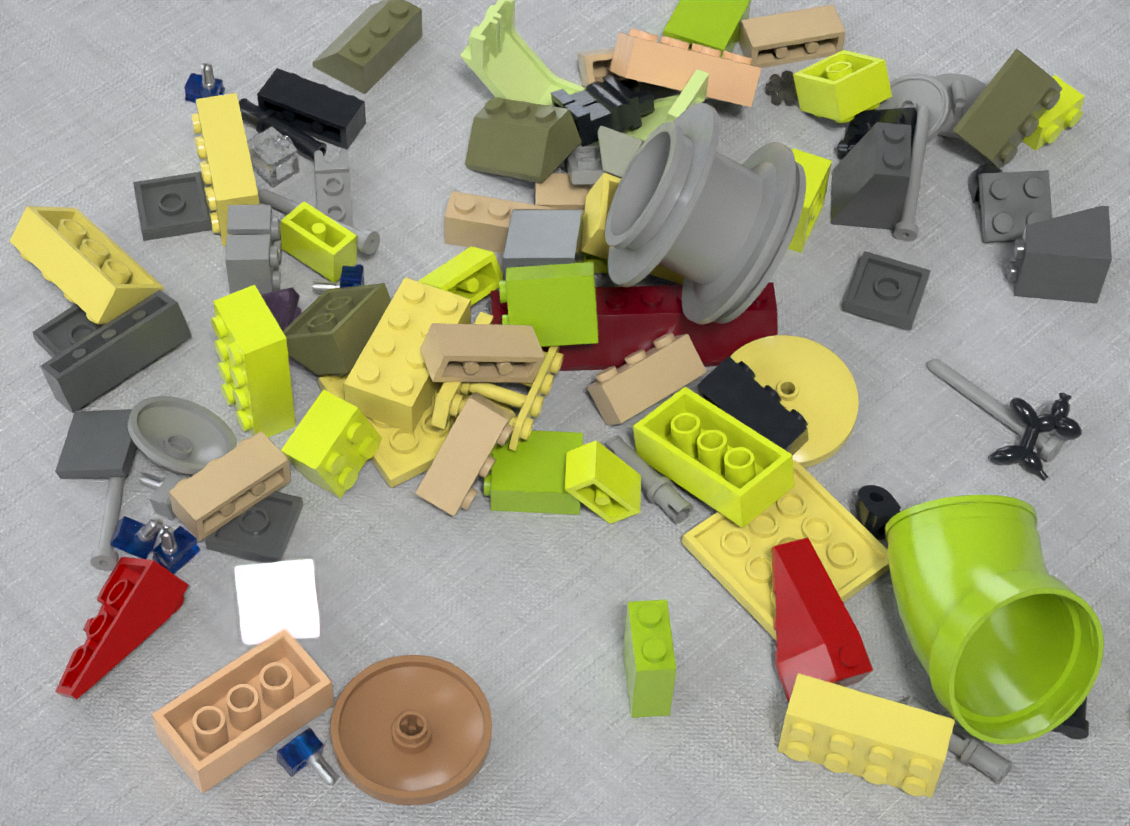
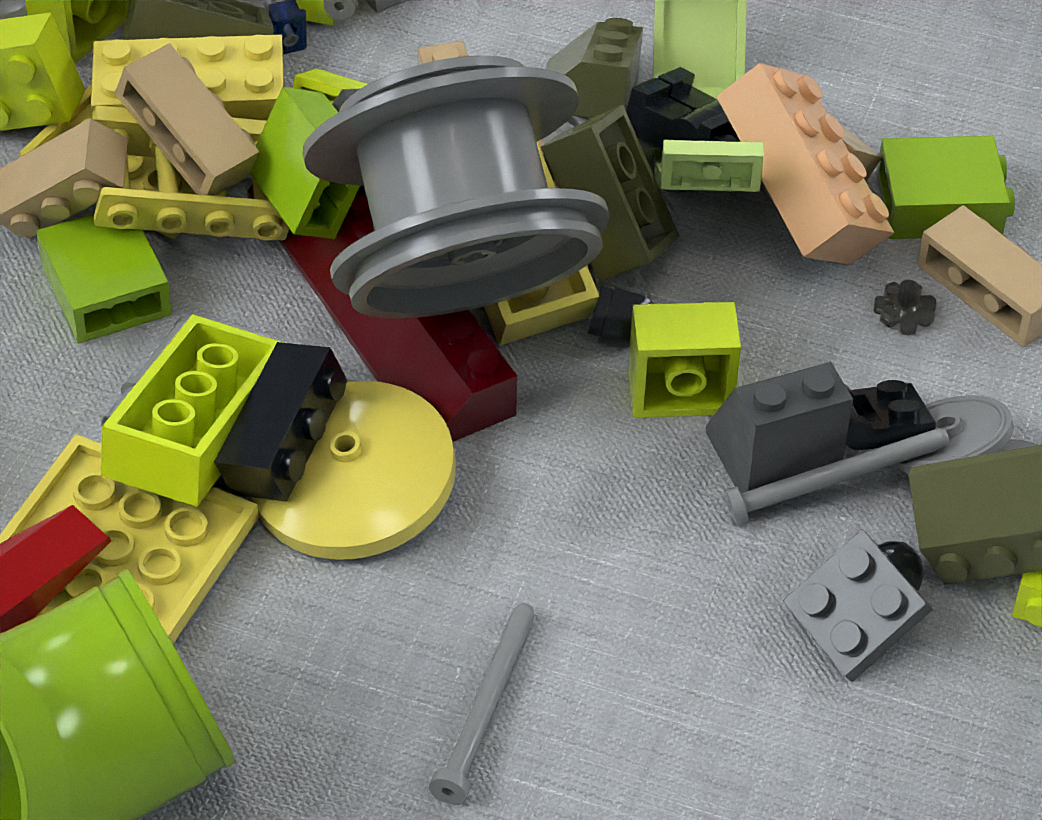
camera: 65 degrees right, 5 degrees down
(603, 482) = (101, 321): neon yellow brick -> none
(646, 378) = (294, 312): tan brick -> none
(842, 86) = (923, 341): neon yellow brick -> none
(875, 508) = (217, 613): black piece -> none
(887, 290) = (614, 517): dark grey plate -> none
(1034, 424) = (467, 728): black piece -> none
(1063, 257) = (793, 682): dark grey slope -> none

